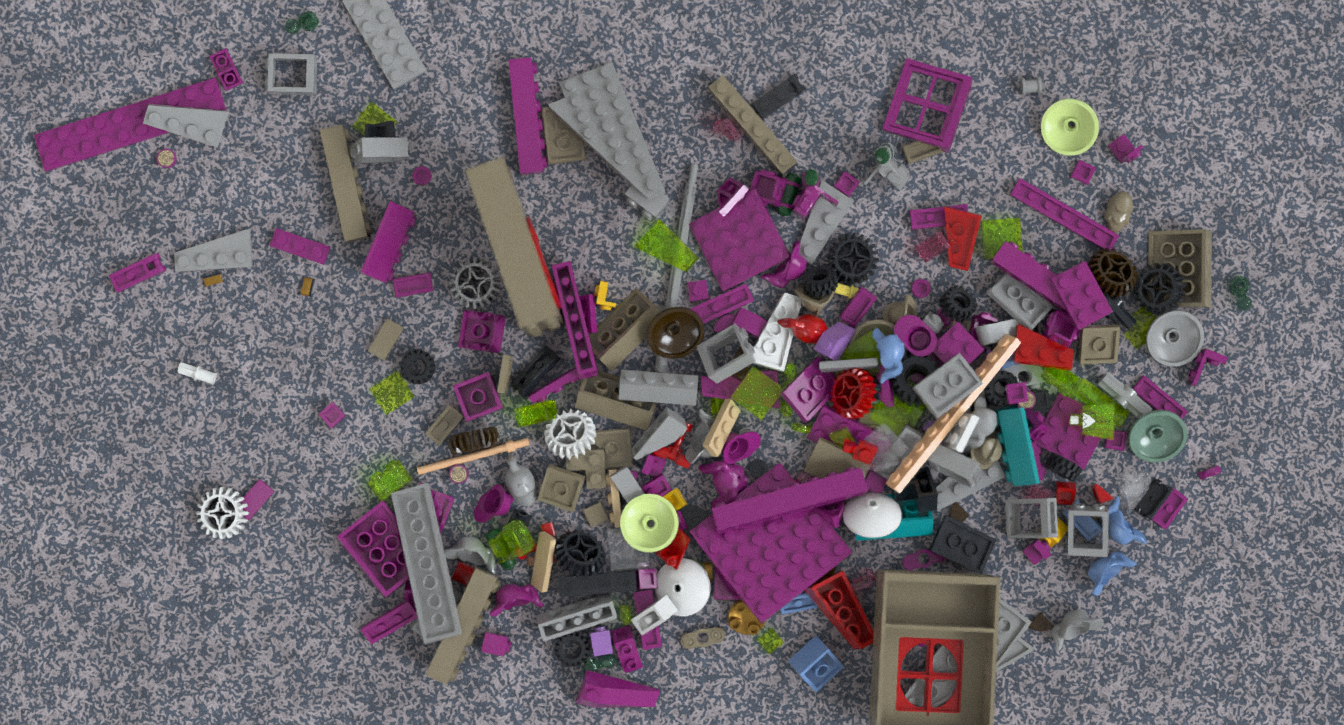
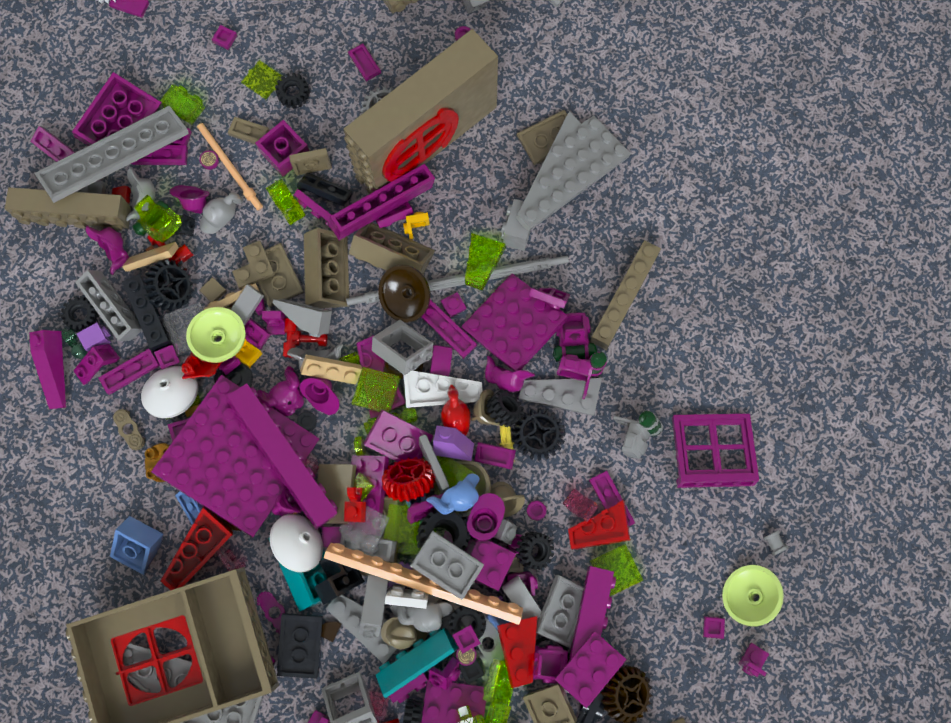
camera: 70 degrees right, 10 degrees down
(385, 339) = (307, 57): dark tan tile -> none
(388, 243) = (392, 24): magenta slope -> none
(473, 440) = (241, 157): dark brown gear -> none
(481, 331) = (334, 131): magenta slope -> none
(496, 644) = (63, 245): magenta brick -> none
(526, 116) = (551, 99): magenta brick -> none
(561, 488) = (225, 249): dark tan plate -> none
(565, 443) = (276, 237): white gear -> none
(625, 614) = (127, 349): clear neon green tile -> none
(654, 615) = (132, 373): white slope -> none
(658, 387) = (348, 297): light grey slope -> none
(724, 323) = (434, 338): magenta tile -> none
(730, 131) = (612, 278): clear pink bracket -> none
(770, 640) = (146, 494): clear neon green tile -> none
(778, 97) = (662, 310): black plate -> none
(846, 184) = (607, 402): magenta tile -> none
(918, 151) = (666, 459): dark tan tile -> none
(1063, 215) = (663, 624): magenta plate -> none
(1118, 211) = (690, 679): dark tan arm -> none

